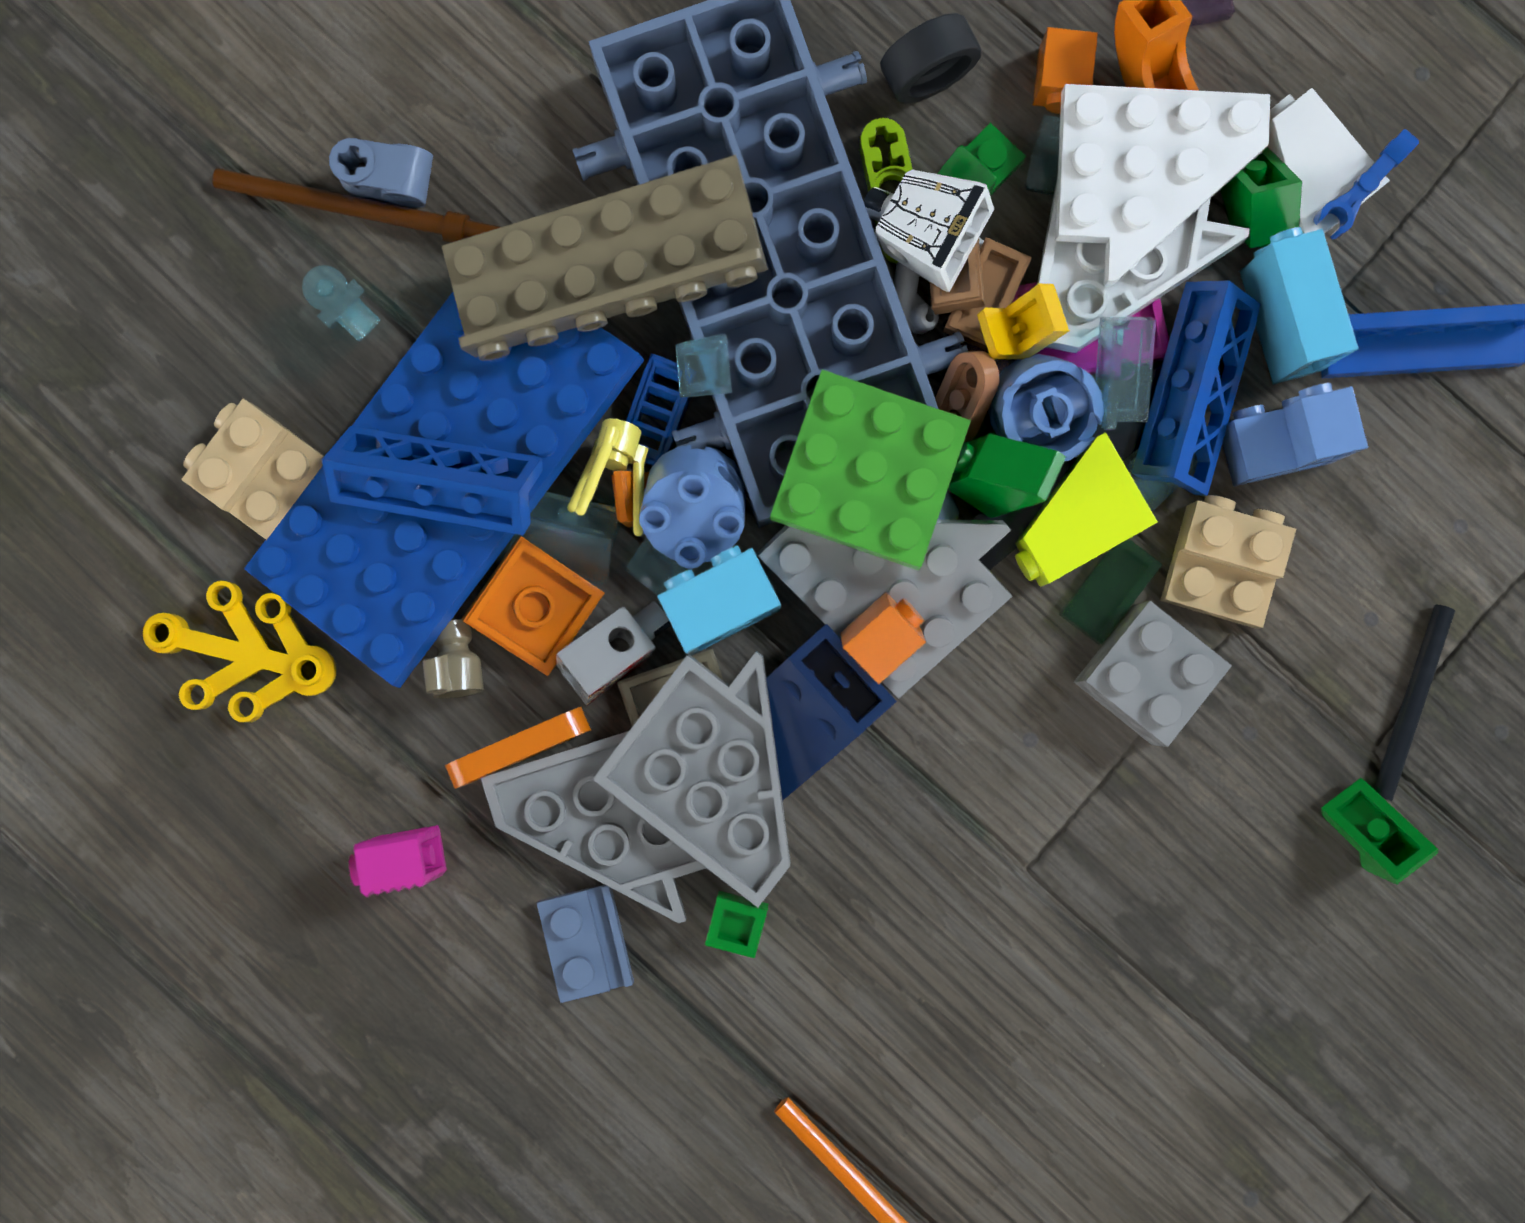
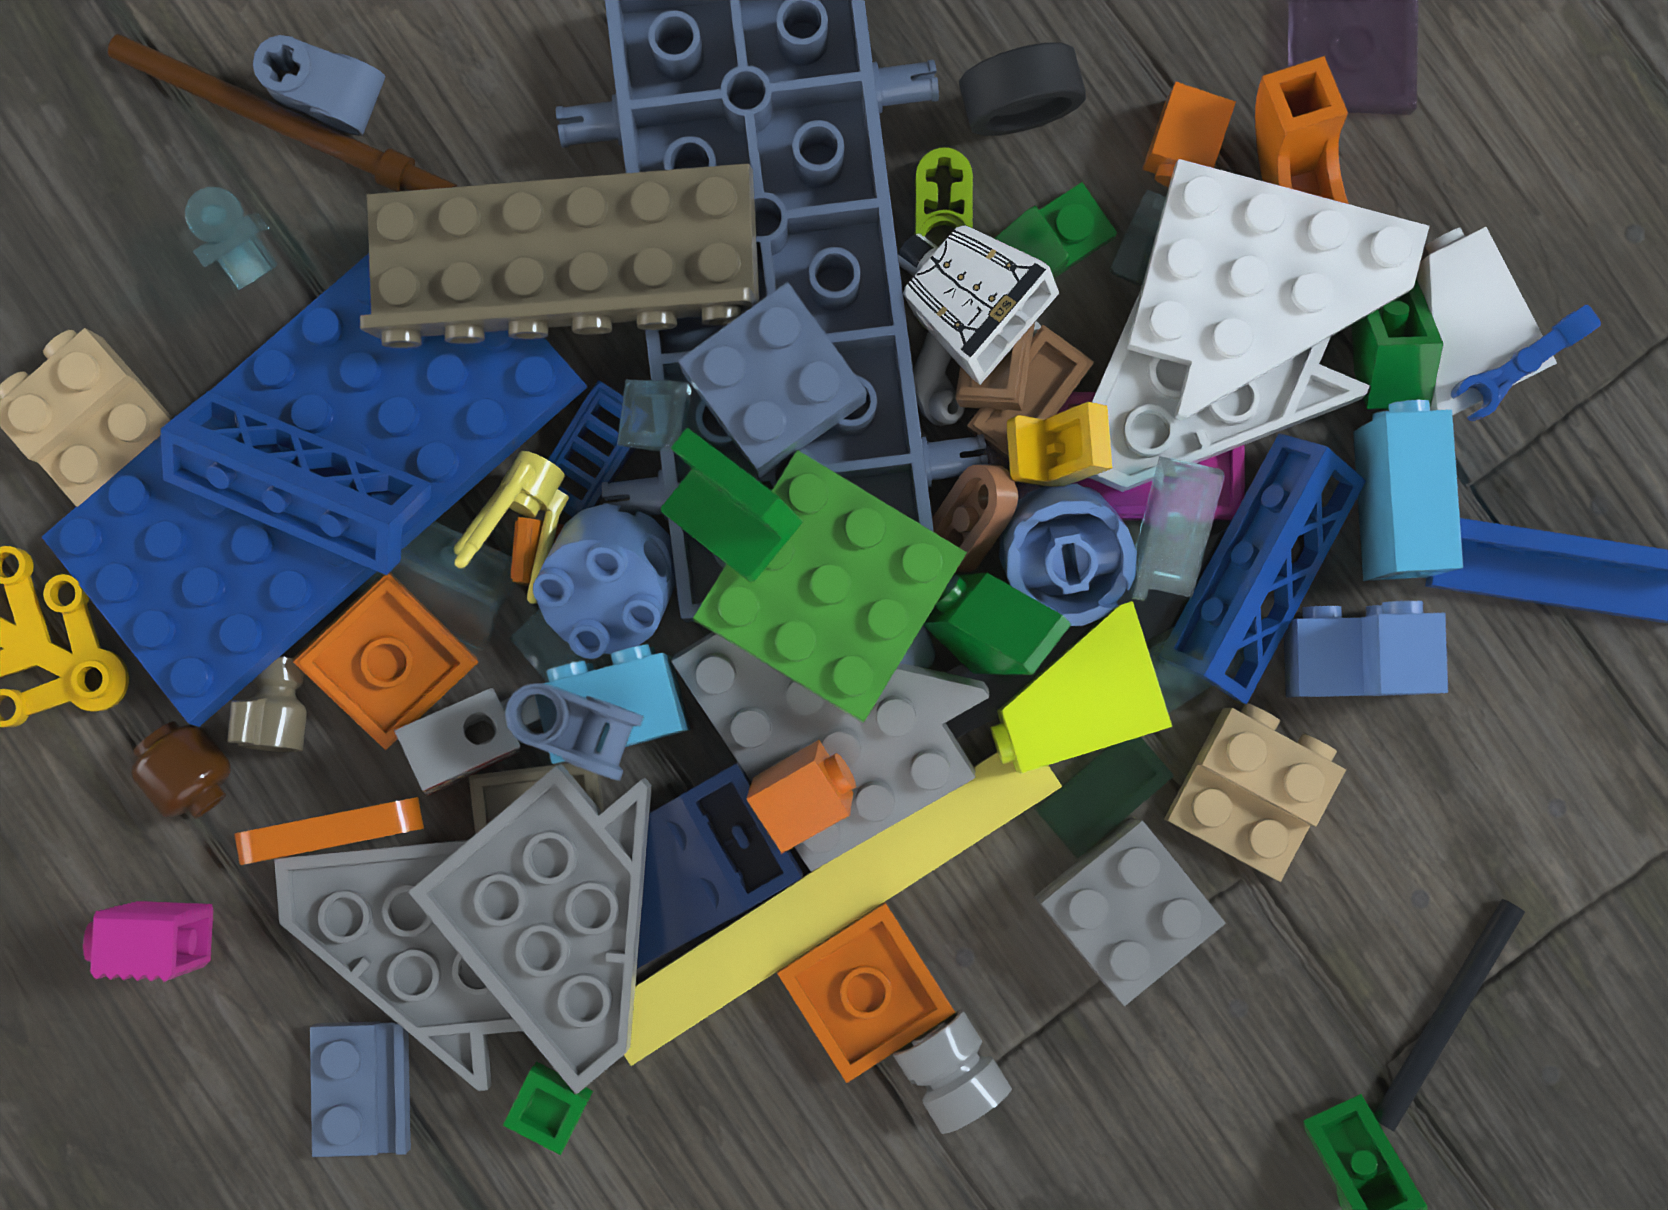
camera: 10 degrees right, 0 degrees up
(392, 725) = (181, 770): none -> reddish brown head
(702, 618) = (577, 728): none -> sand blue piece
(780, 423) = (728, 509): none -> green panel
(792, 318) = (773, 380): none -> sand blue brick
(917, 718) = (828, 902): none -> light yellow tile
(962, 781) = (866, 992): none -> orange plate
(1049, 834) = (956, 1078): none -> light grey wheel

